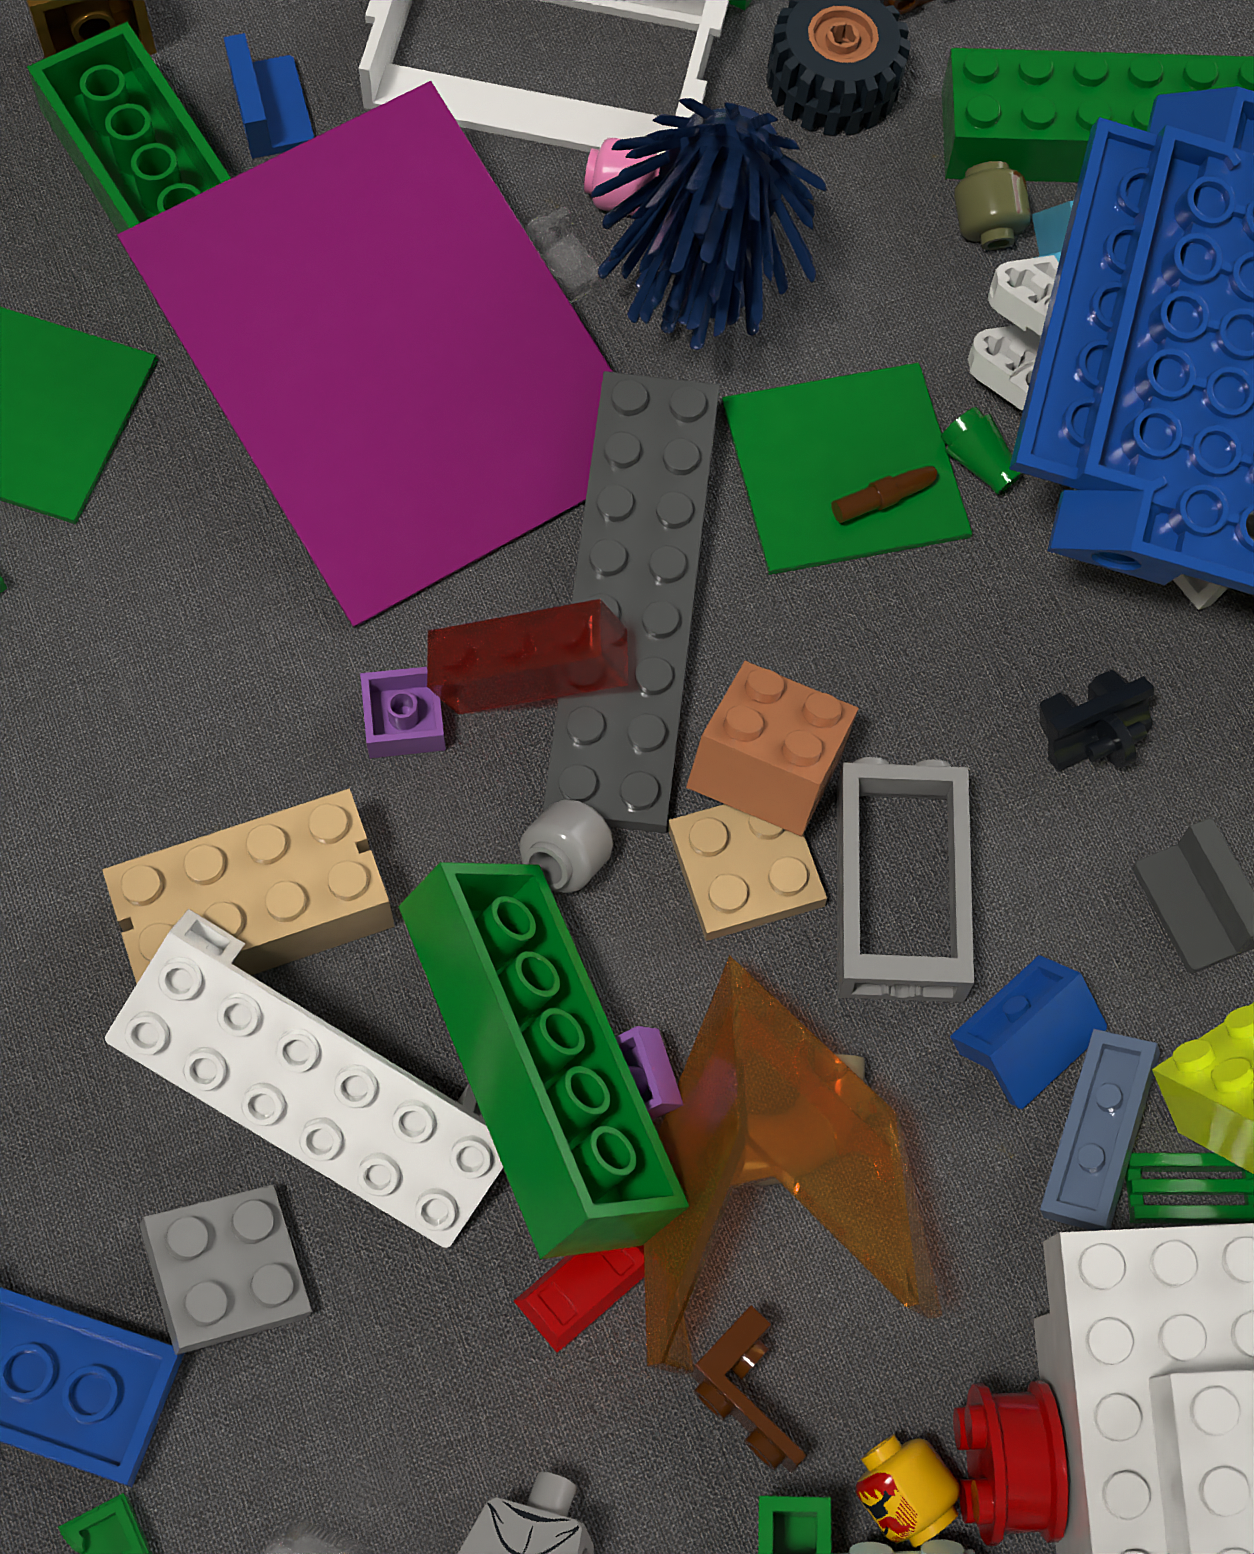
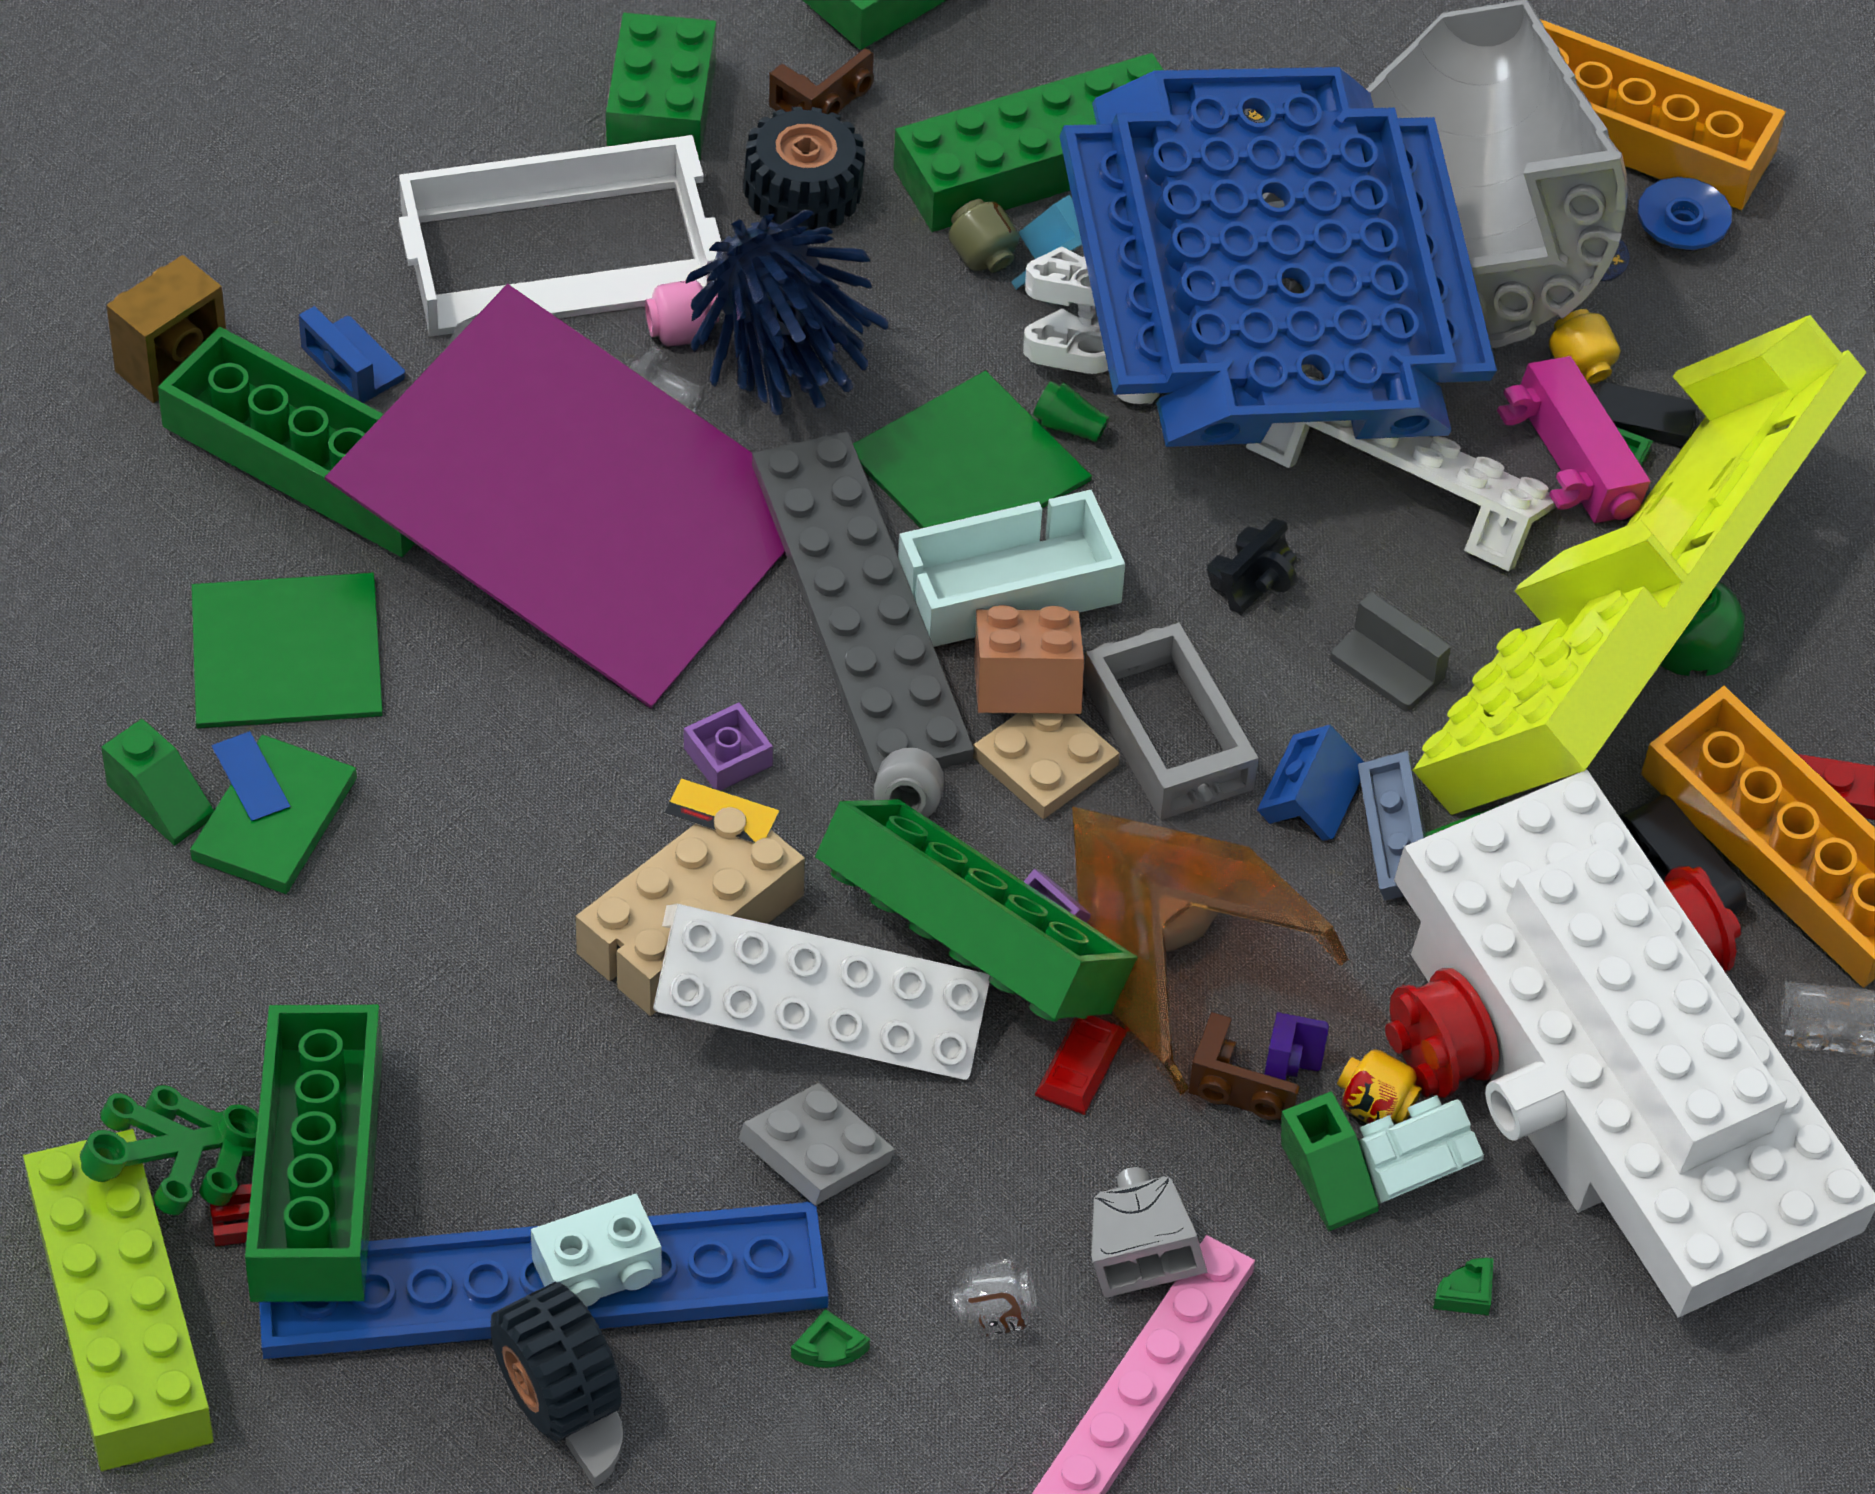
camera: 25 degrees left, 15 degrees down
(308, 782) = (701, 803): none -> yellow sticker
(528, 657) = (811, 665): clear red brick -> none
(815, 619) = (1003, 562): none -> light aqua piece
(832, 1377) = (1295, 1045): none -> dark purple bracket
(883, 493) = (1010, 469): reddish brown piece -> none

